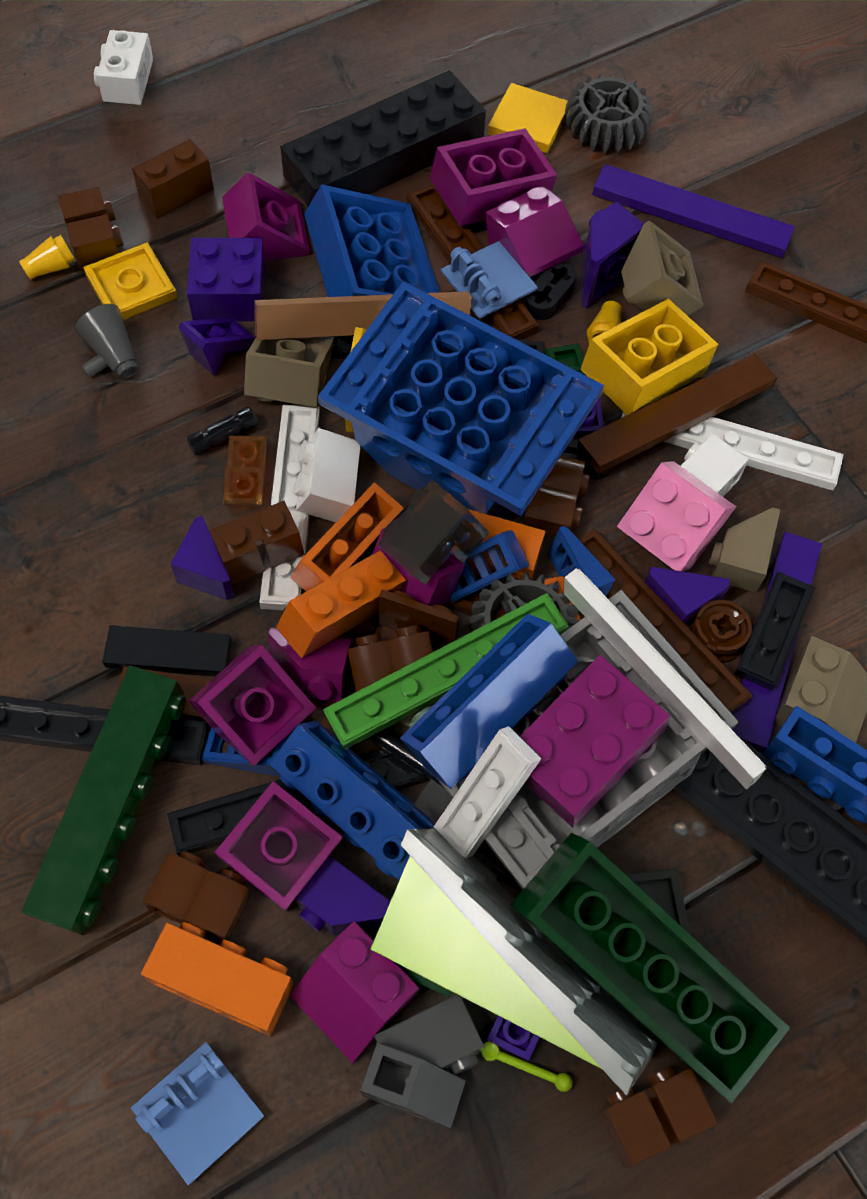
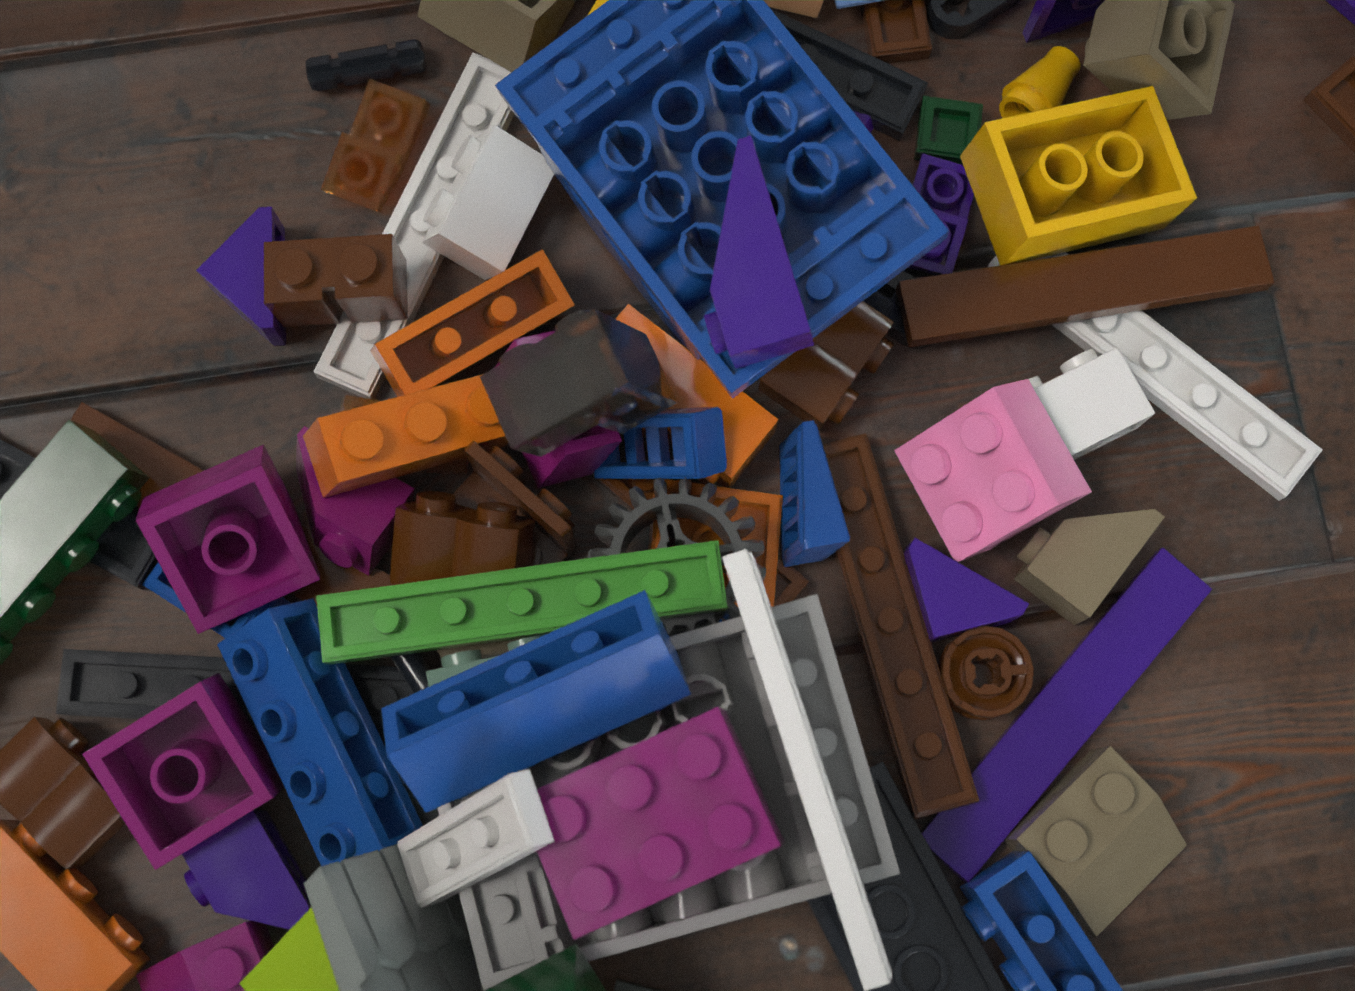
camera: 20 degrees right, 15 degrees up
(167, 650) = (155, 398): black tile -> none
(515, 444) = (752, 276): none -> dark purple slope
(774, 631) = (1066, 706): black tile -> none

